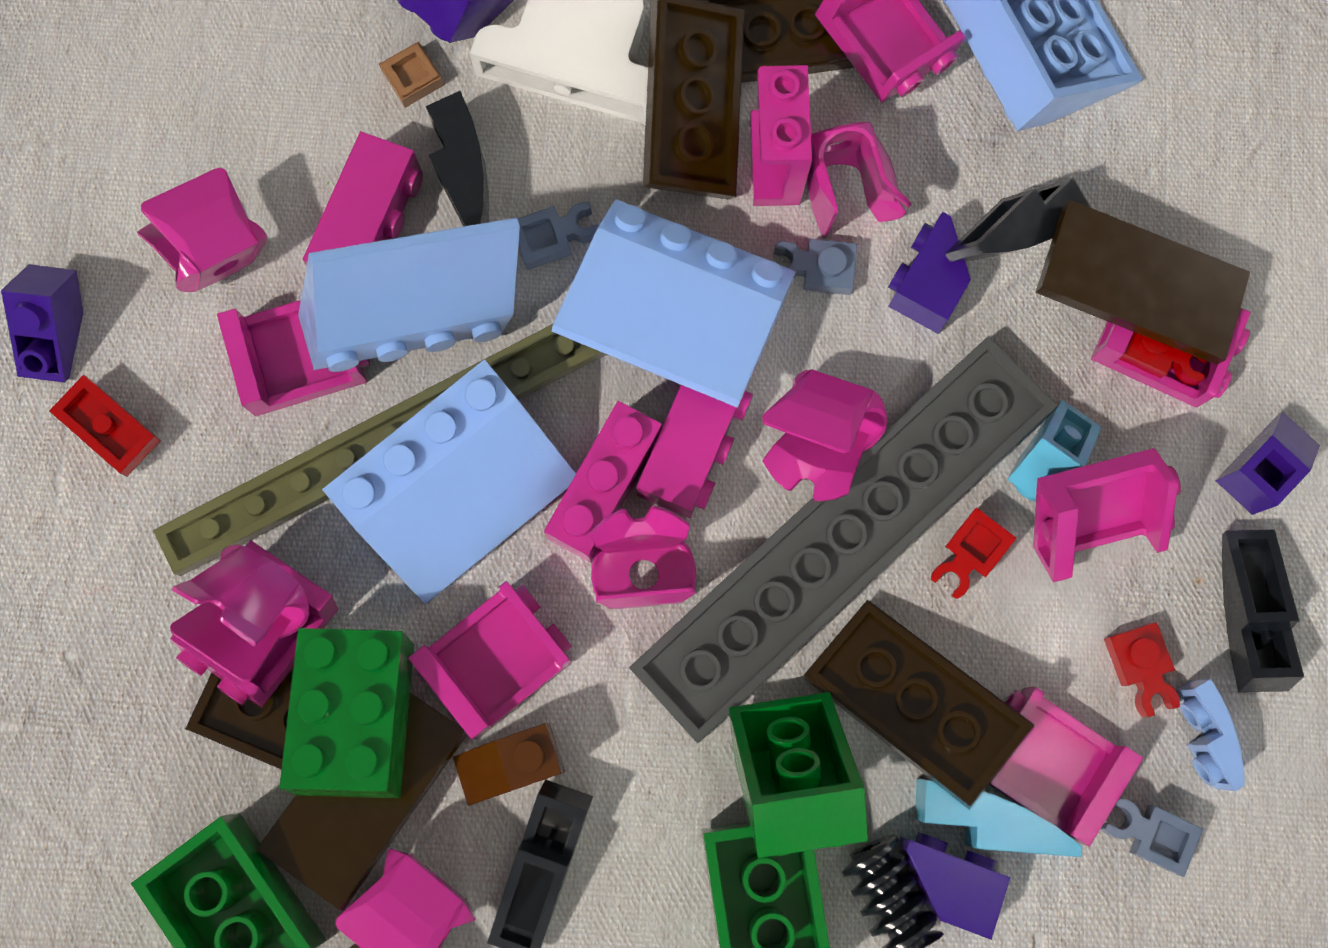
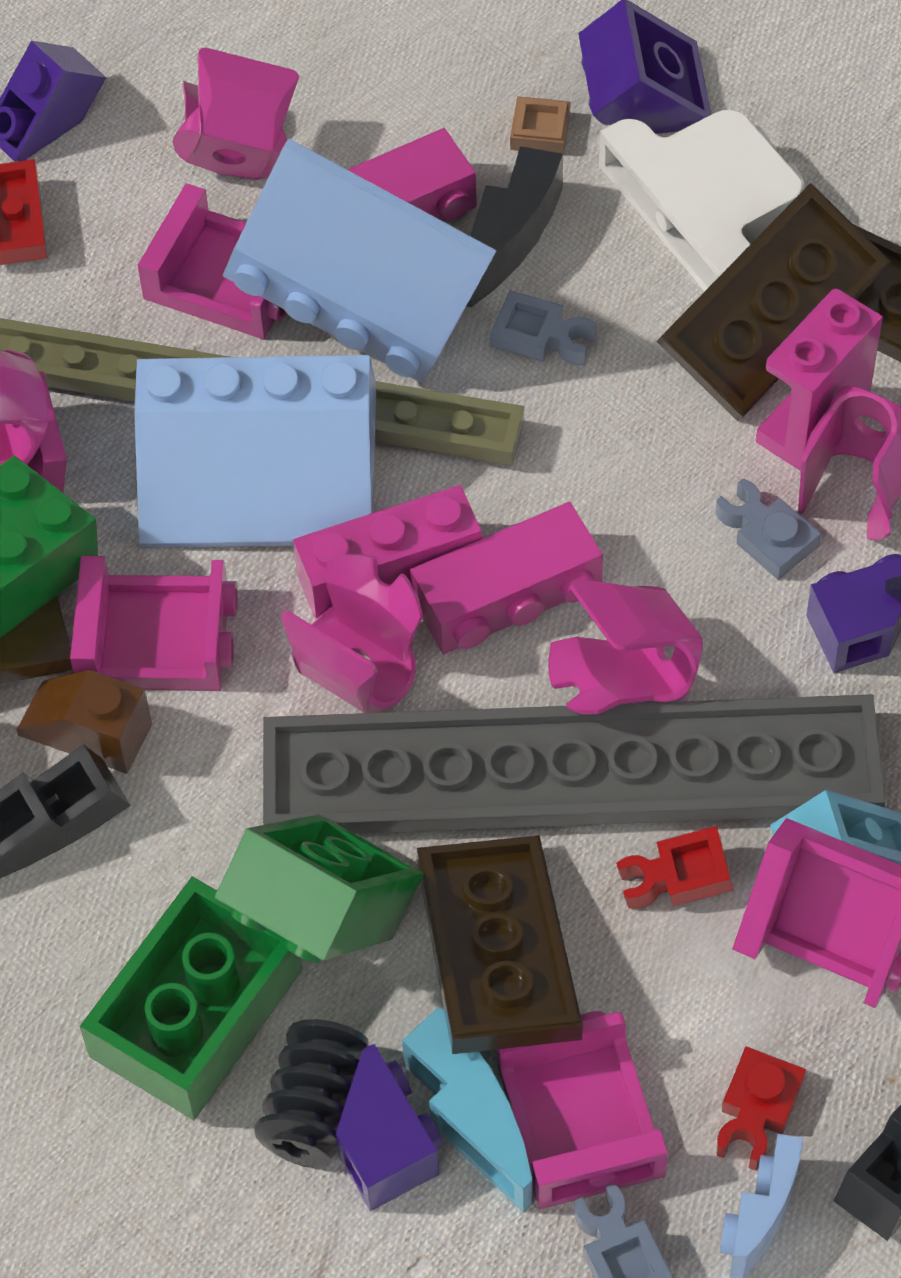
camera: 45 degrees right, 20 degrees down
(674, 302) = (593, 447): light blue slope -> none

